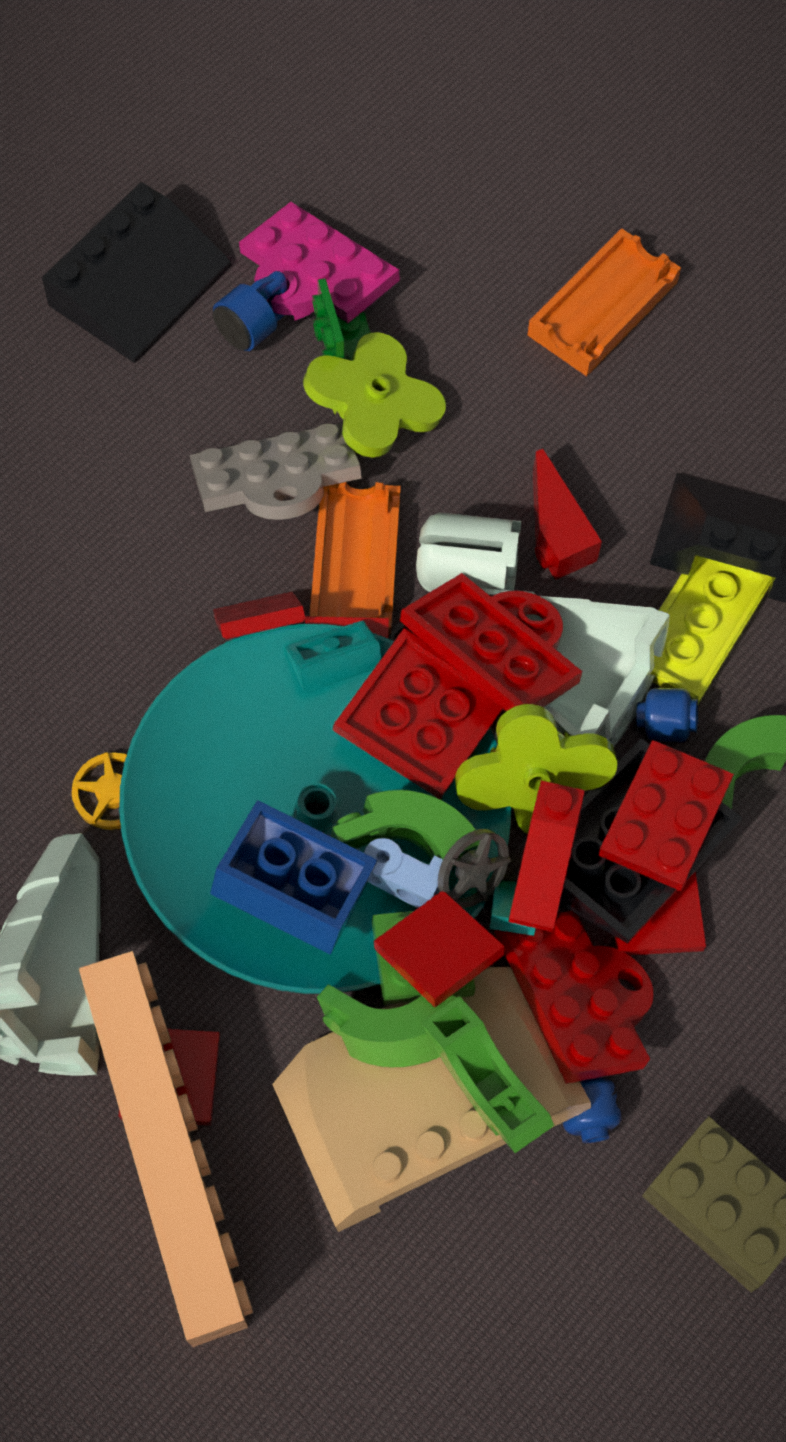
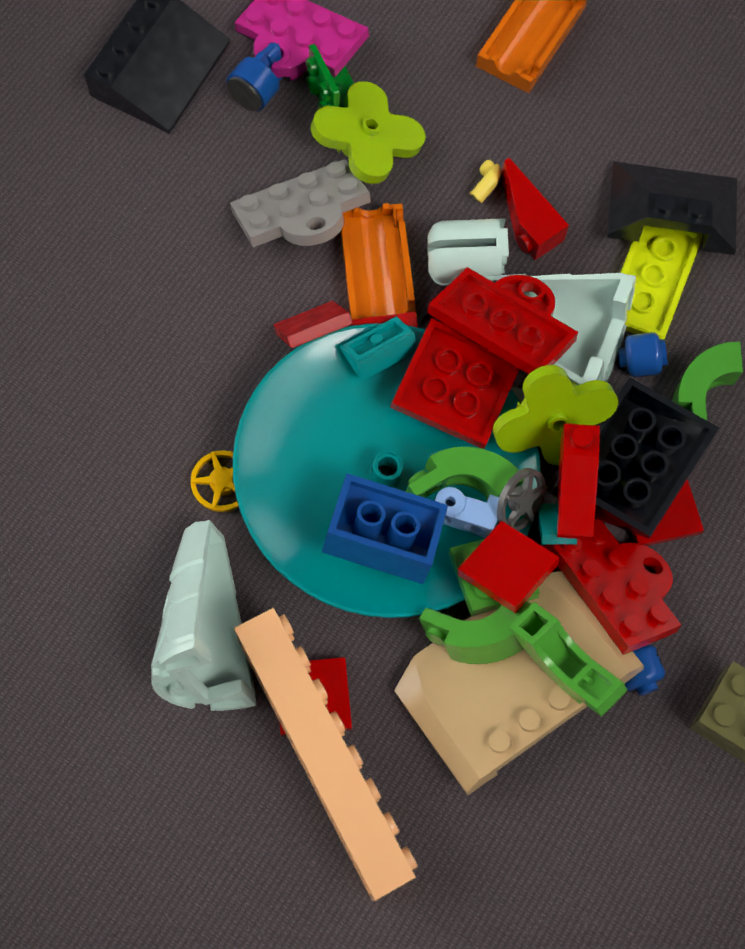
camera: 10 degrees left, 5 degrees up
(518, 470) = (488, 183): none -> light yellow arm
(666, 815) = (661, 434): red plate -> none

